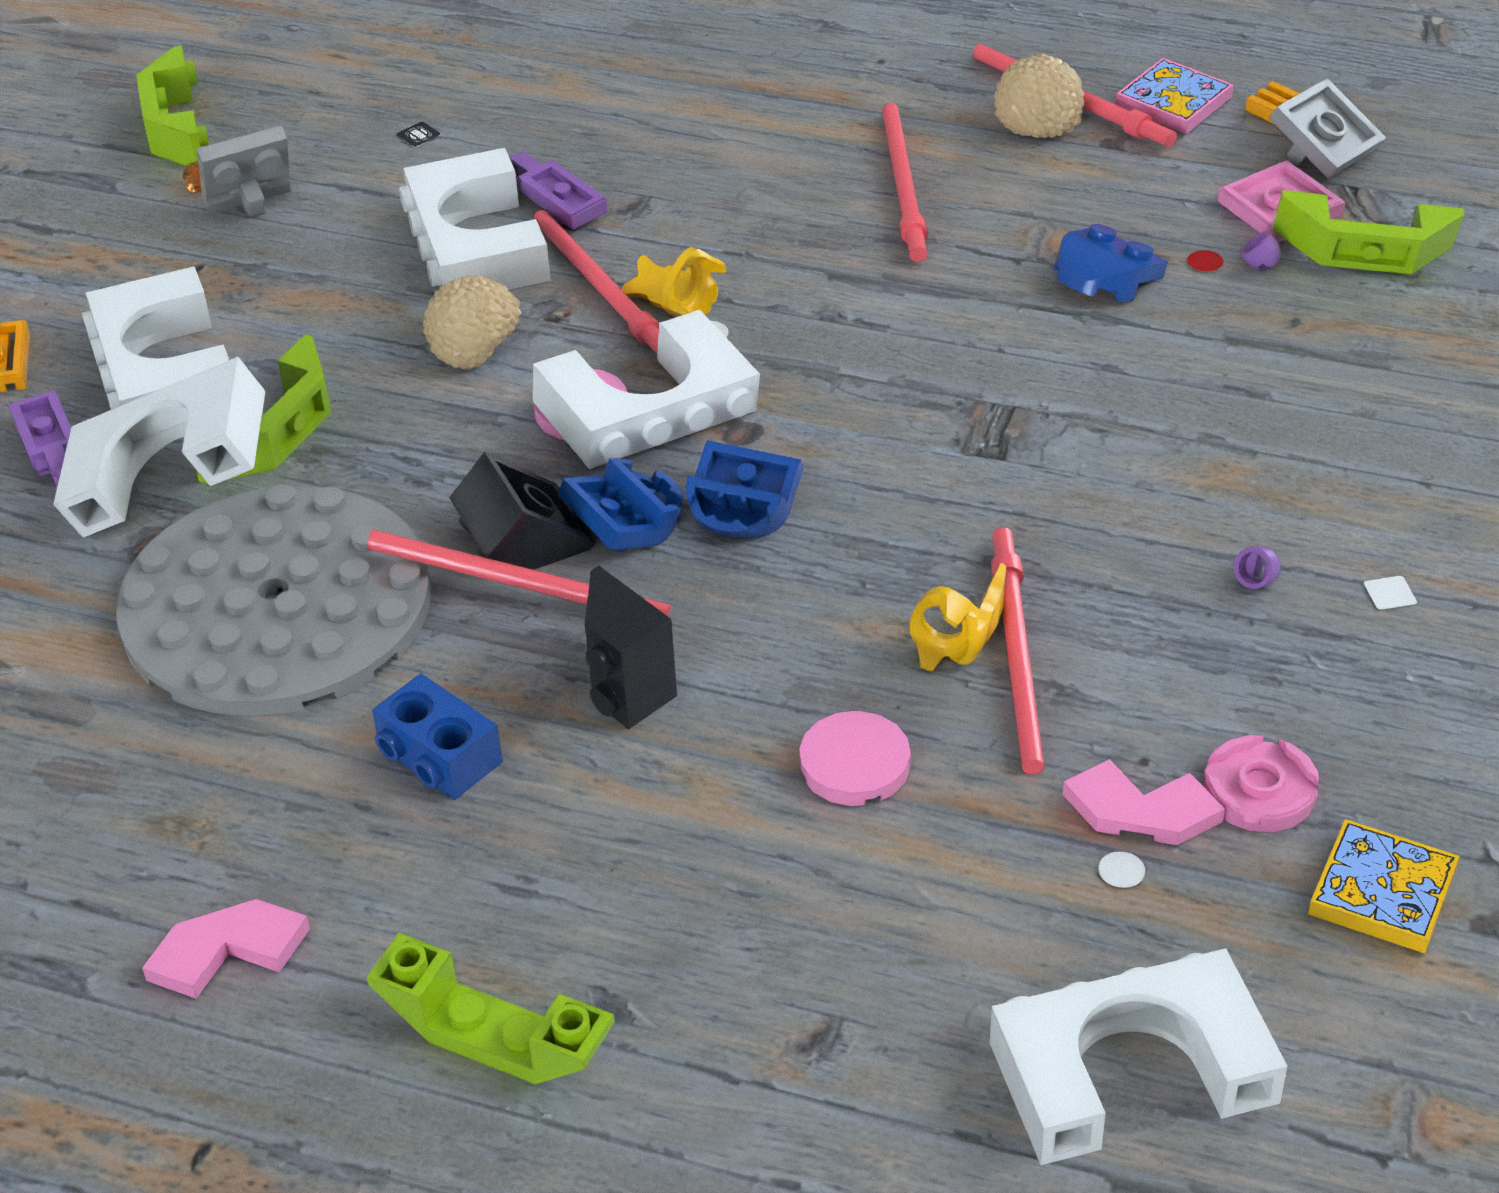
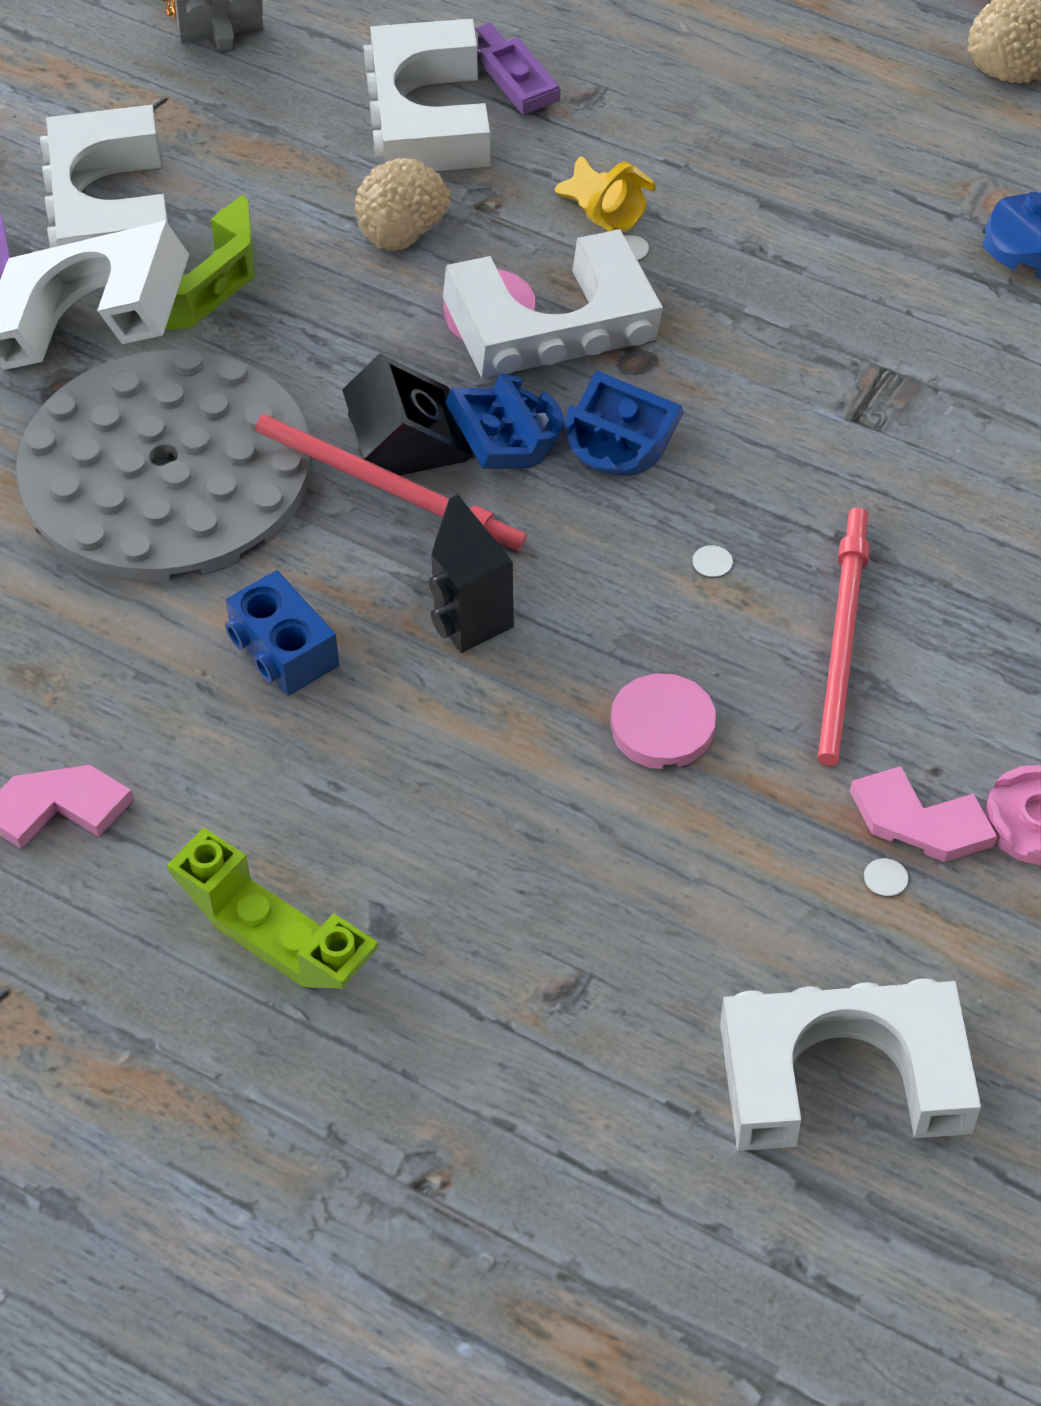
camera: 10 degrees right, 10 degrees up
(640, 323) = (564, 229): coral bar -> none
(865, 602) = (712, 561): none -> white sticker
(912, 225) = (855, 162): coral bar -> none
(976, 621) = (787, 590): yellow hair -> none

